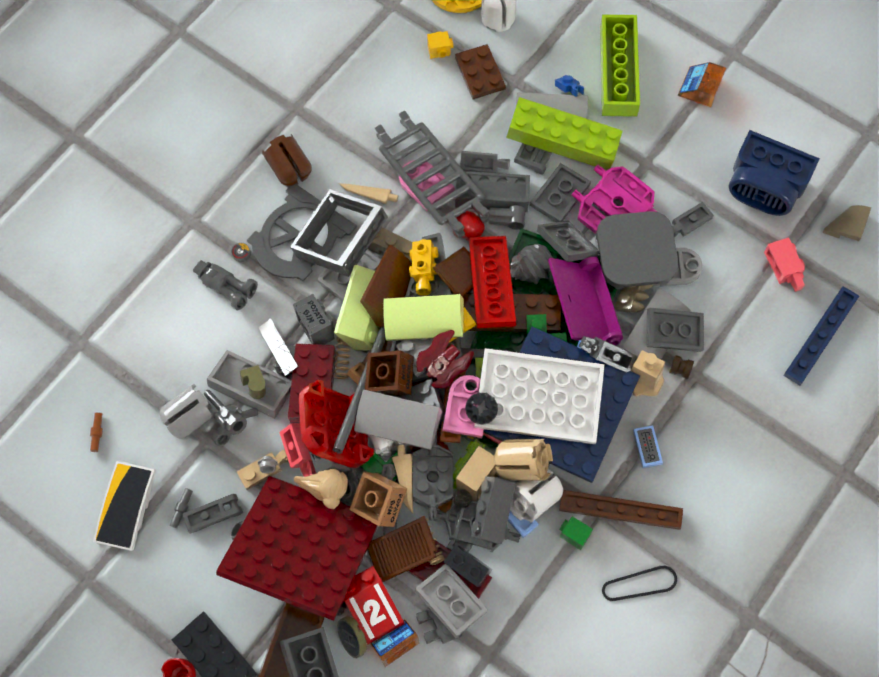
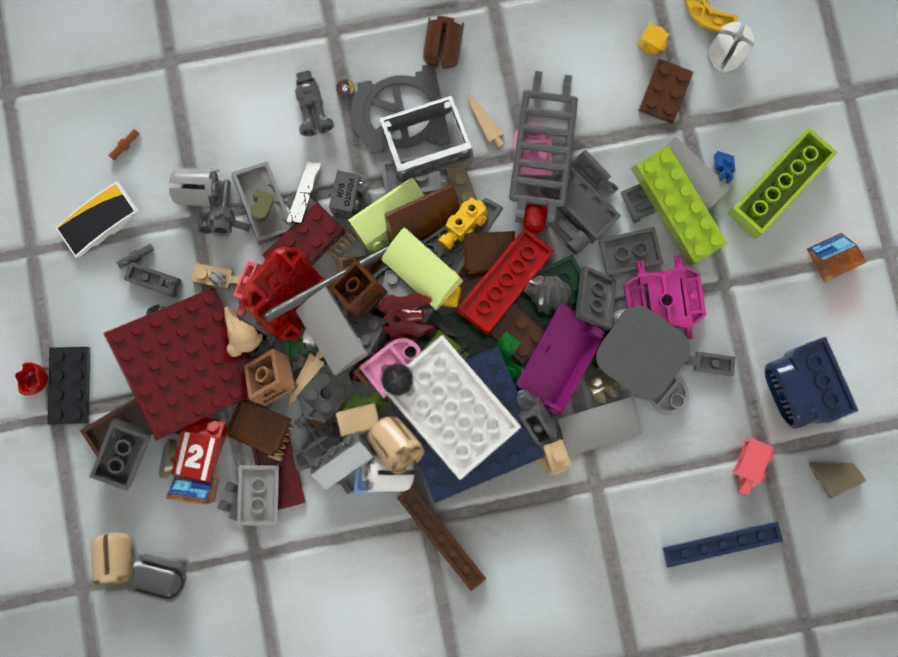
camera: 40 degrees right, 15 degrees up
(468, 565) = (291, 482): black brick -> none
(575, 532) = (392, 525): green brick -> none
(640, 594) = (409, 592): black piece -> none
(647, 446) = (506, 509): tile -> none
(675, 329) = (611, 441): dark grey plate -> none
(681, 367) = (589, 473): dark brown wheel -> none

